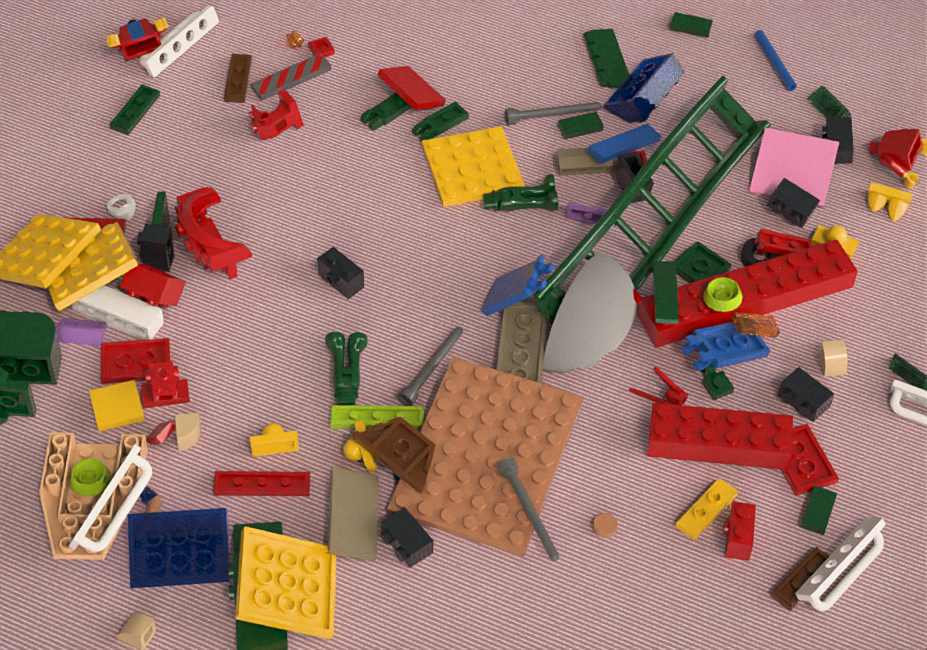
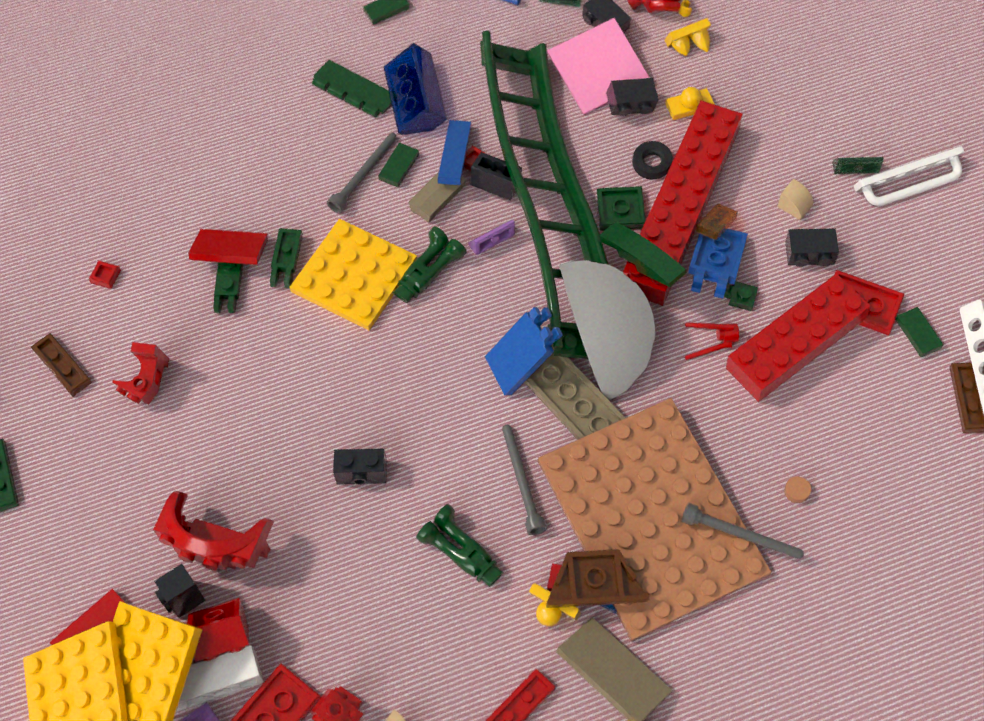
camera: 40 degrees left, 10 degrees up
(125, 211) = (104, 581): white piece -> none
(161, 212) = (149, 556): dark green tile -> none
(274, 441) = (477, 670): yellow tile -> none
(291, 76) = (108, 324): dark grey tile -> none
(294, 40) = (73, 286): clear orange plate -> none
(345, 415) = (530, 567): lime tile -> none
(406, 537) = (676, 650): black brick -> none
(706, 509) = (848, 405): yellow plate -> none
(722, 294) = (682, 218): lime hat -> none
(740, 530) = (895, 401): red brick -> none
(780, 243) = (663, 137): red hinge -> none

